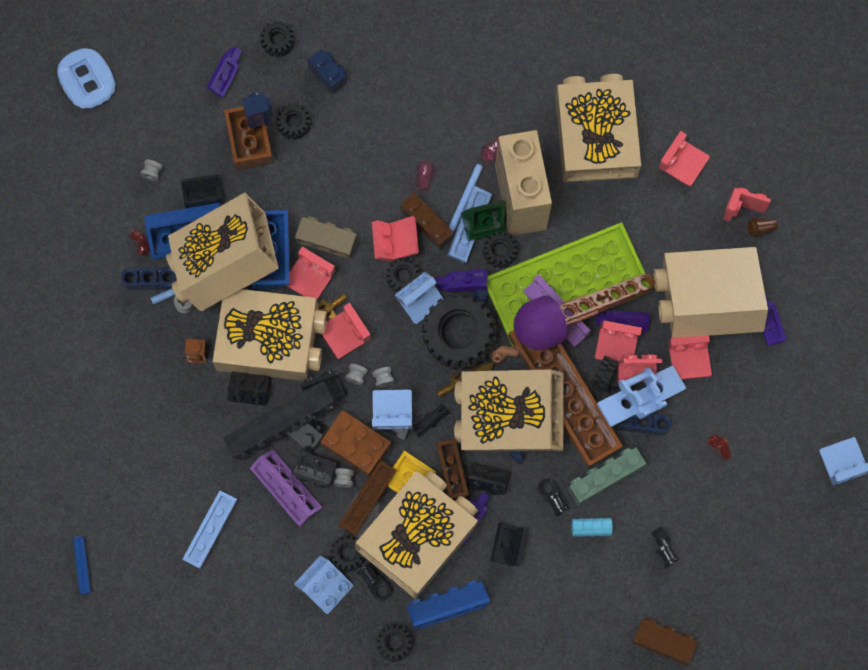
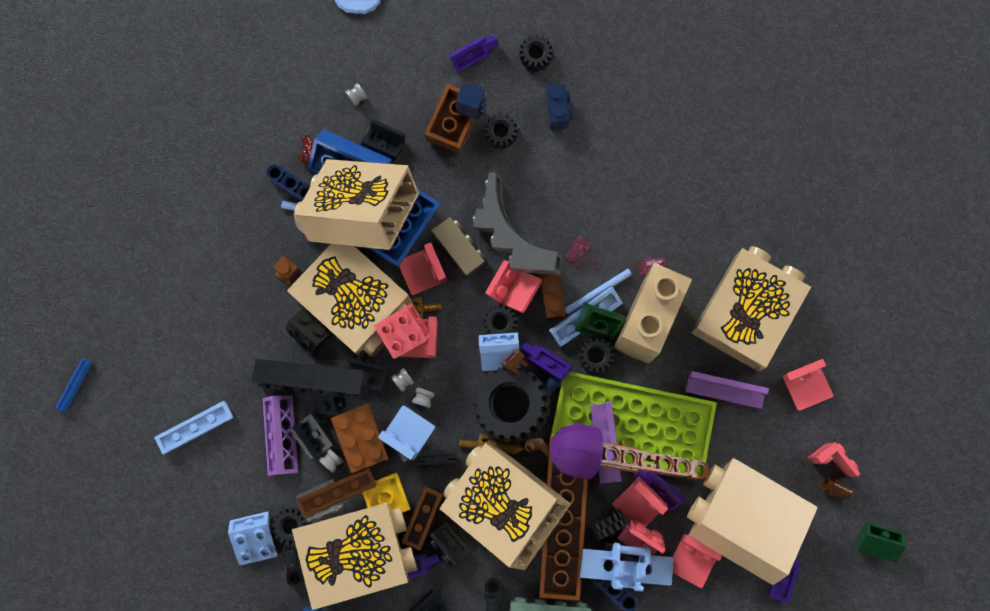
camera: 40 degrees right, 5 degrees up
(331, 330) = (402, 331): none -> coral bracket
(388, 205) = (494, 220): none -> dark grey arch
(437, 292) = (513, 360): none -> reddish brown tile
(621, 207) = (725, 390): none -> medium lavender fence
(824, 243) = (881, 542): none -> dark green brick

